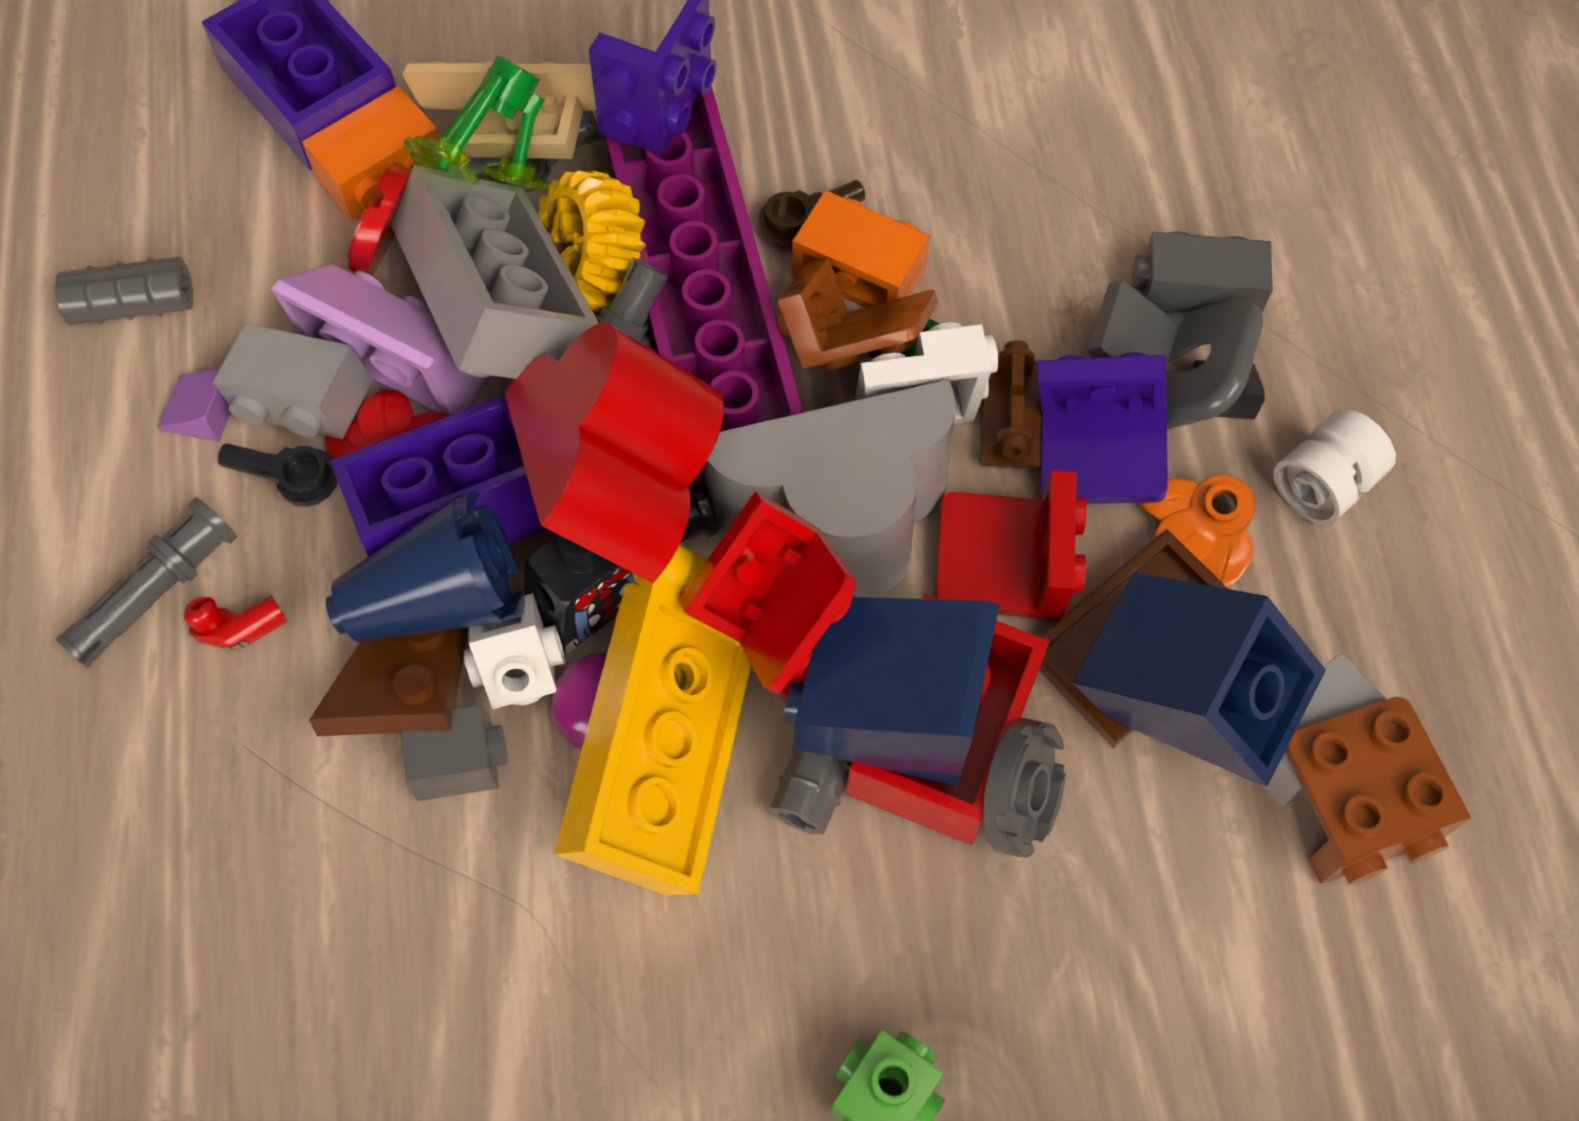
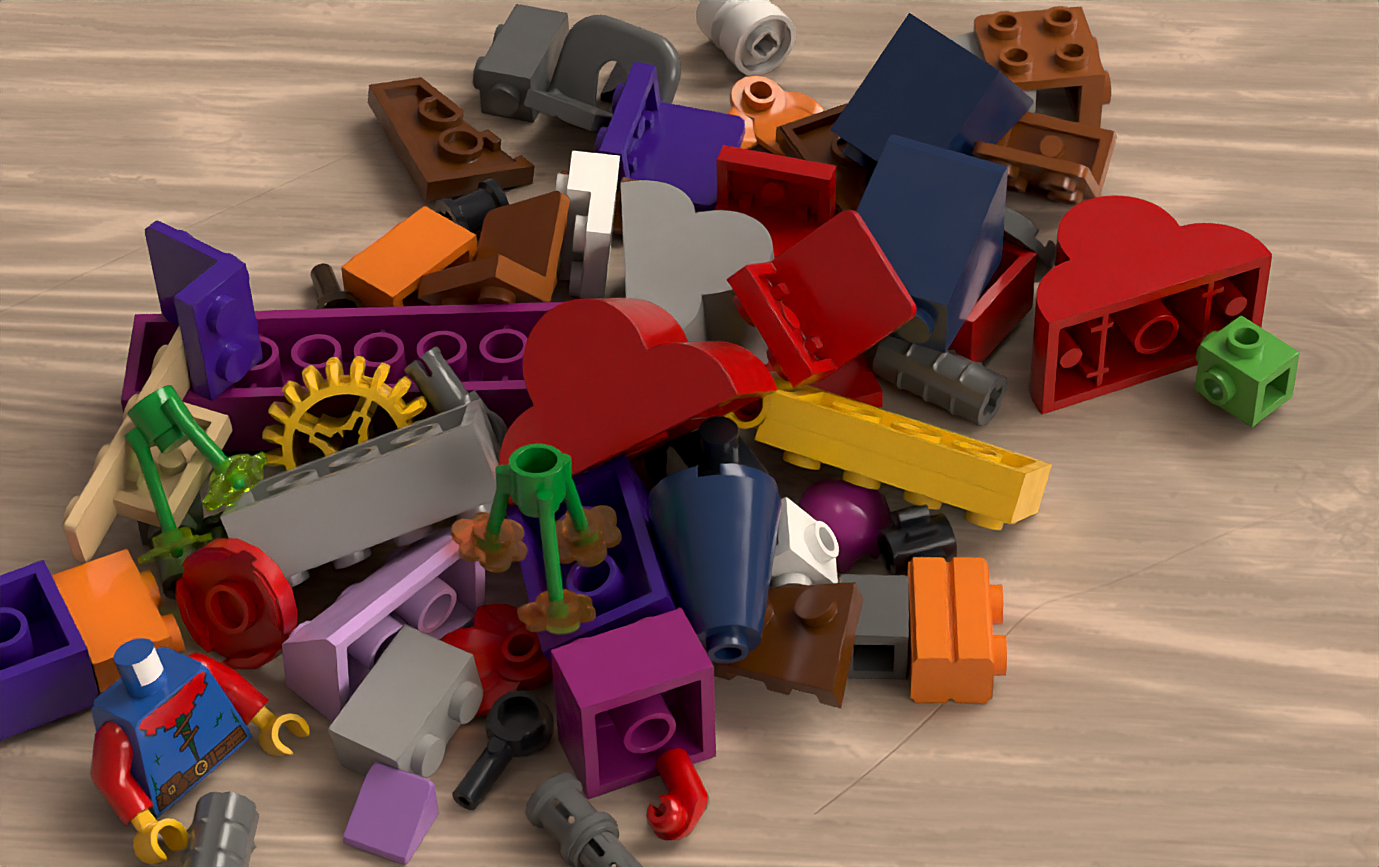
camera: 75 degrees left, 20 degrees down
(240, 212) = (168, 730): none -> torso
(289, 542) = (632, 699): none -> magenta brick
(399, 377) = (538, 483): none -> plant
(452, 828) = (953, 630): none -> orange brick
(550, 773) = (915, 535): none -> black gear
(954, 938) = (1136, 297): none -> red brick
(963, 286) = (473, 207): none -> black bush
(1063, 236) = (436, 143): none -> reddish brown wing
(1190, 820) = (1053, 156): none -> dark orange bracket

